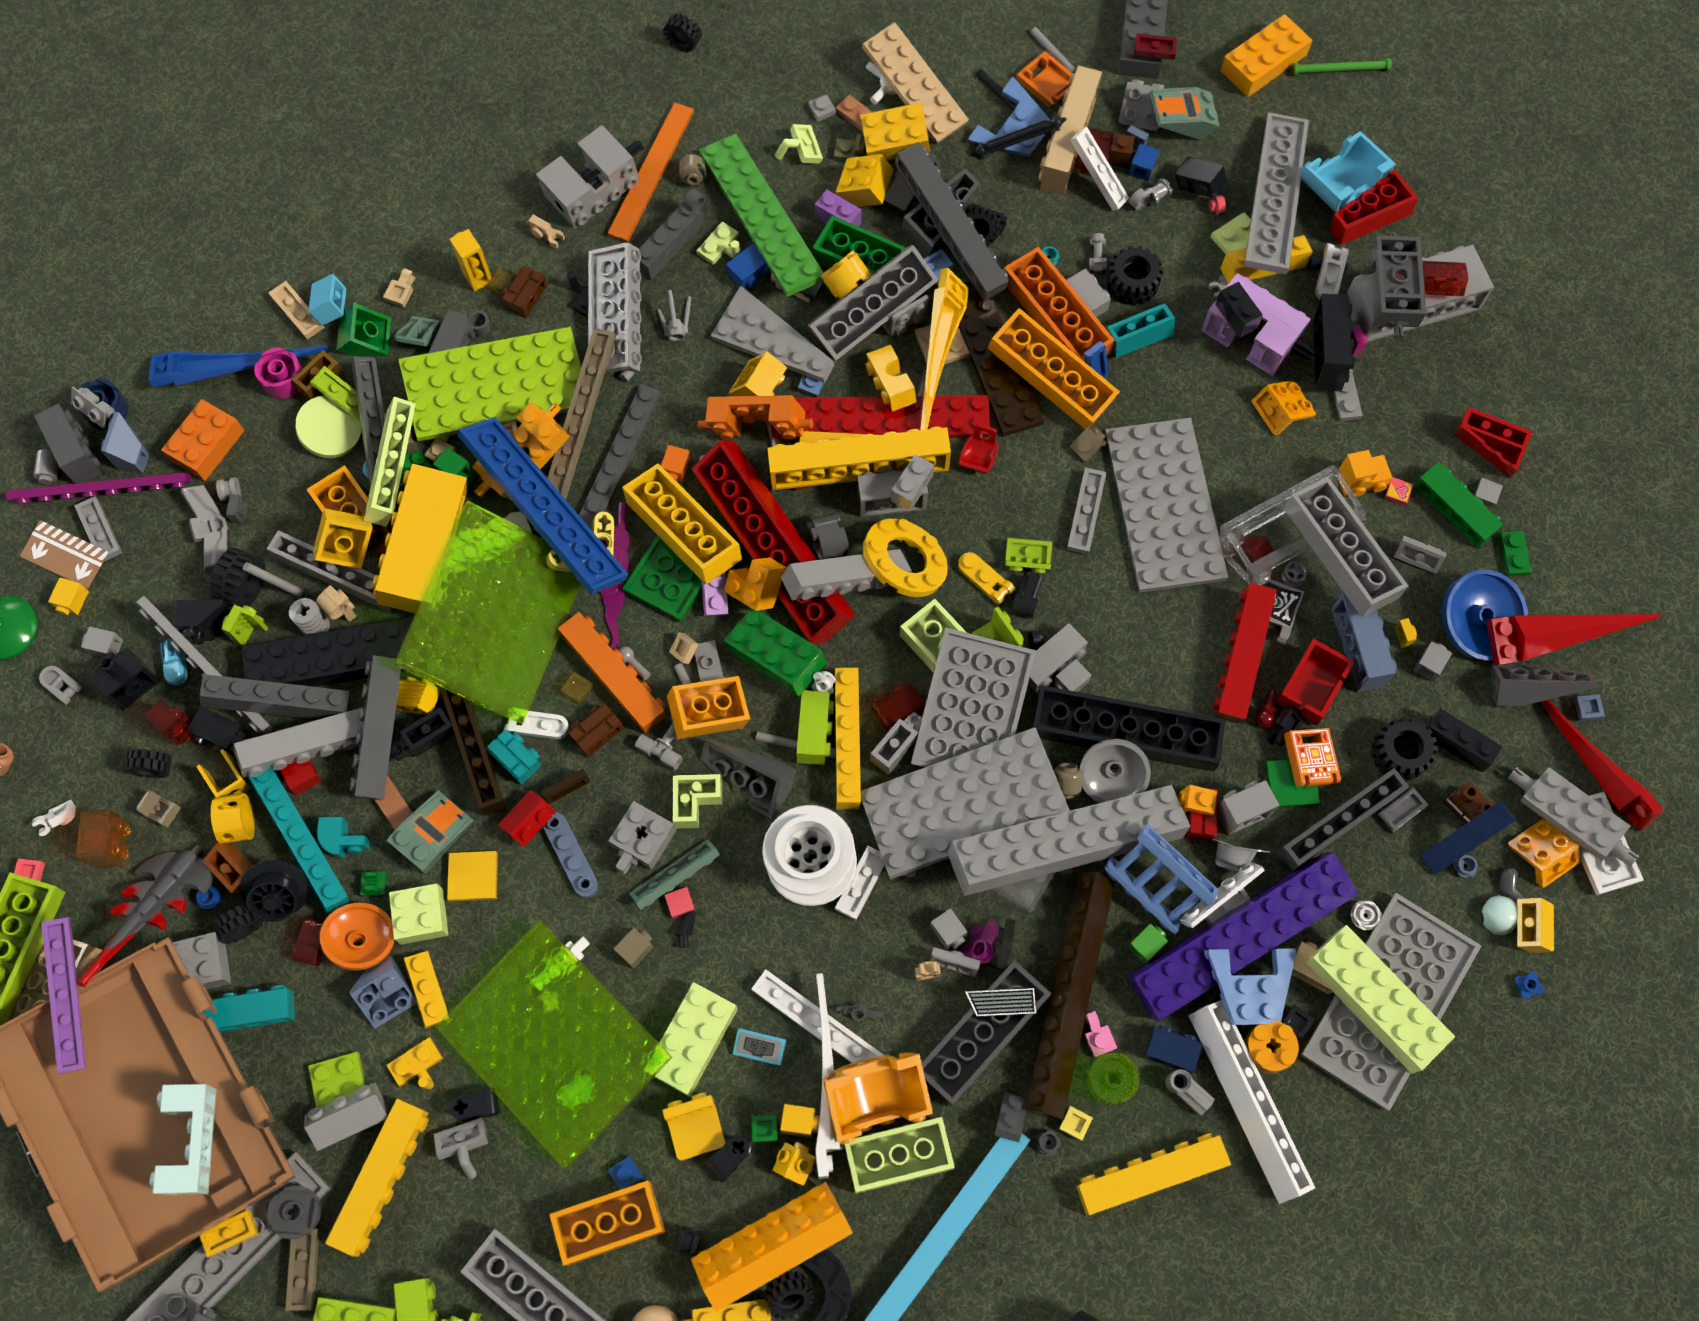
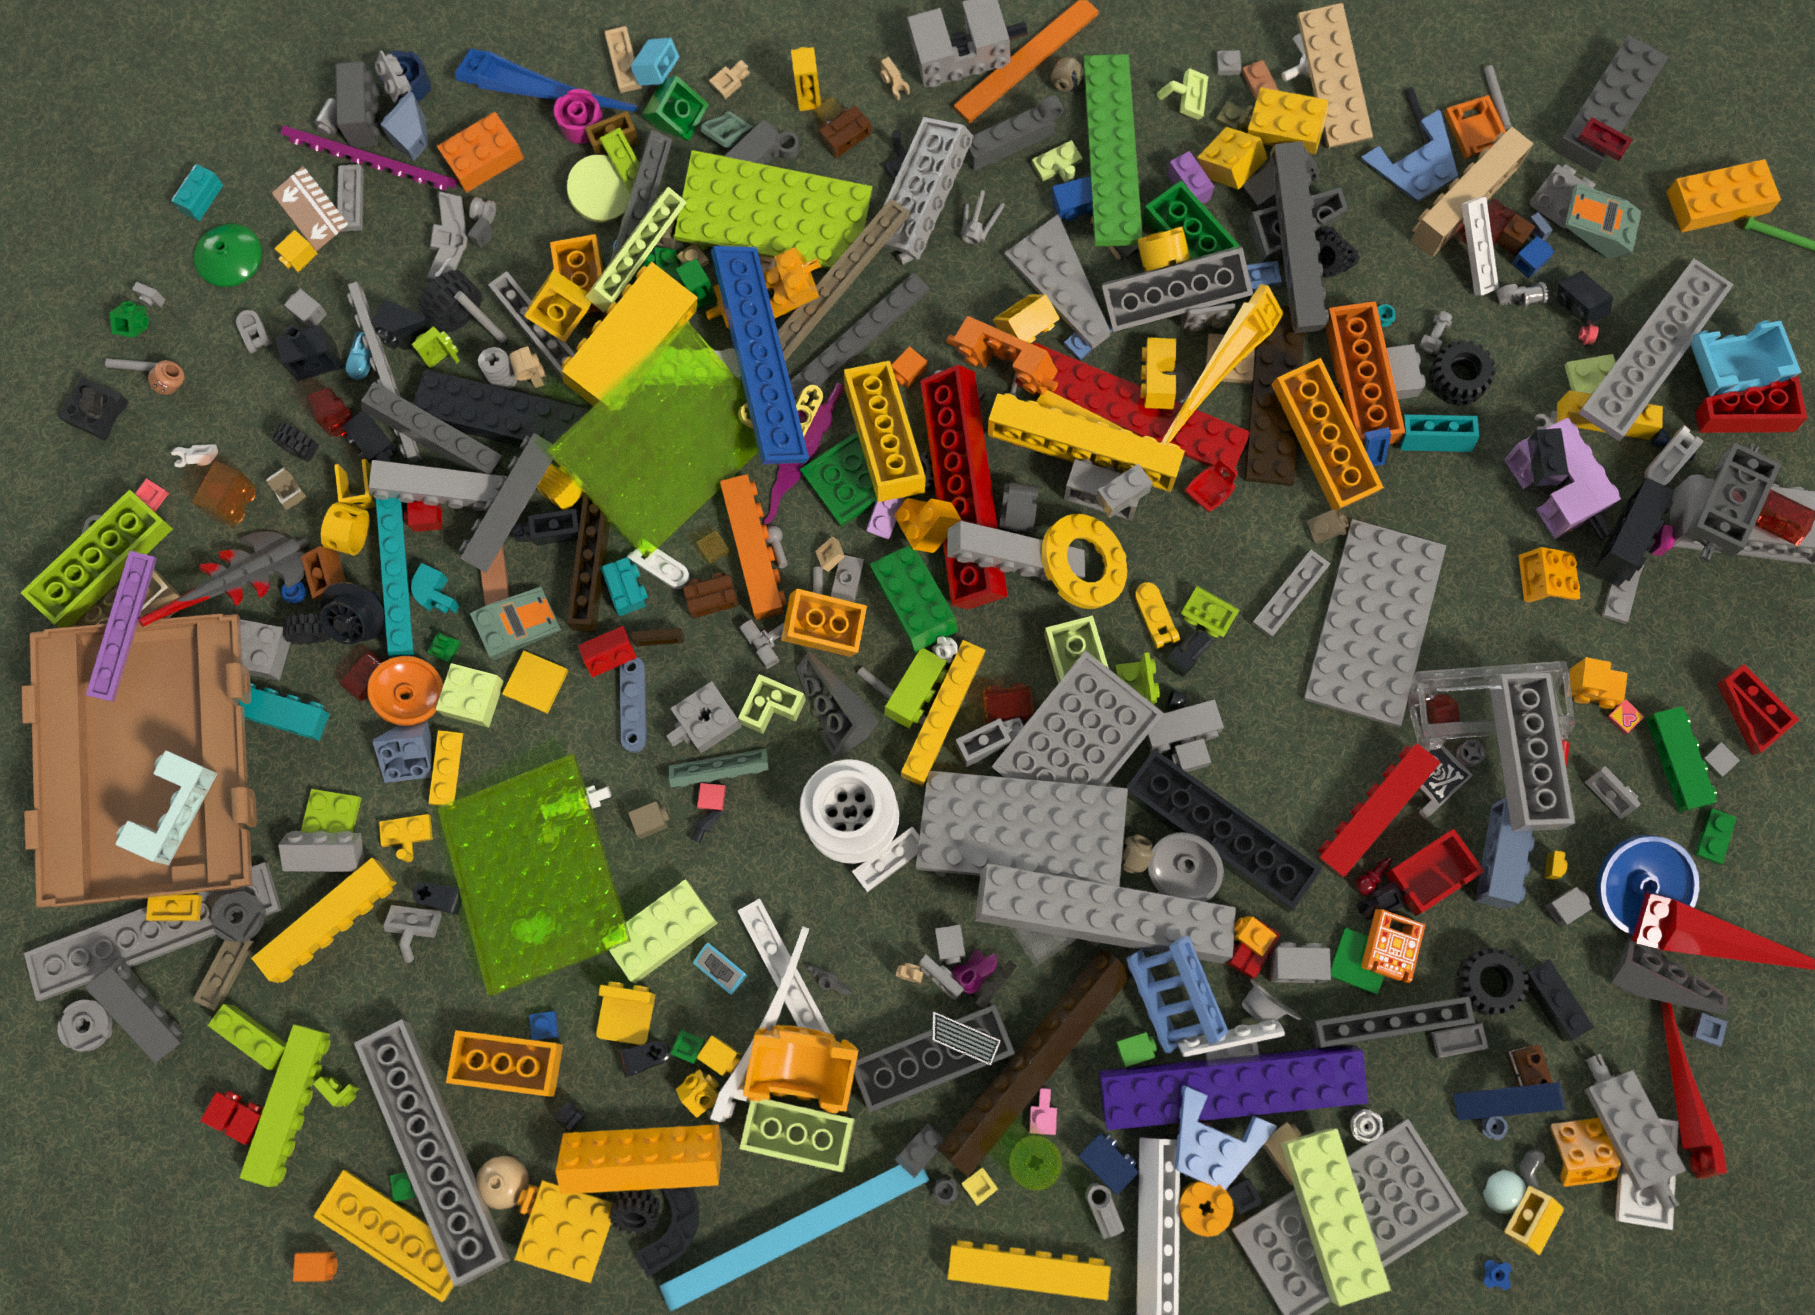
camera: 30 degrees right, 5 degrees up
(1018, 136) = (1413, 176): black wheel -> none

